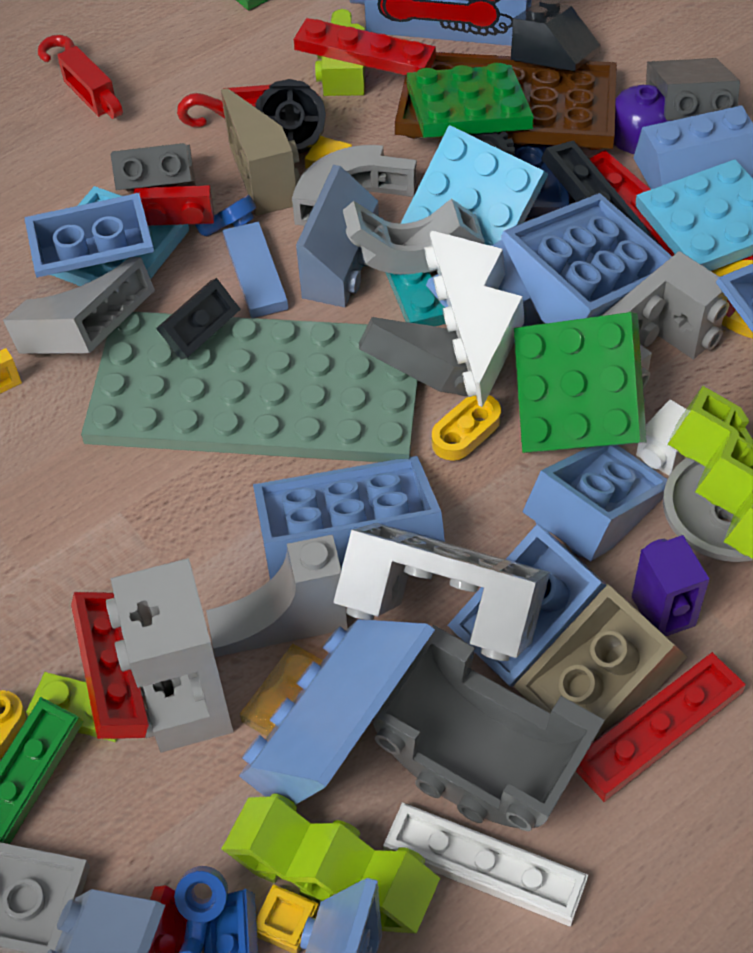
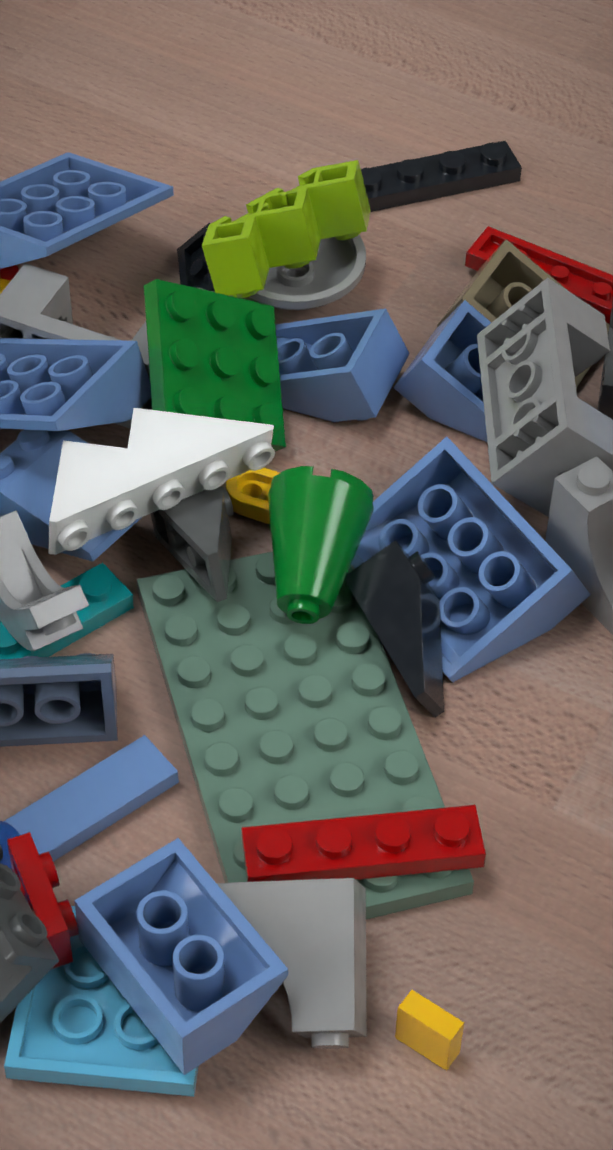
camera: 115 degrees left, 5 degrees down
(125, 375) = (365, 846): none -> red plate
(198, 319) = (227, 781): black plate -> none
(294, 456) = (405, 616): none -> black slope
(381, 402) = (315, 537): none -> green cone
(670, 585) = (423, 275): dark purple brick -> none

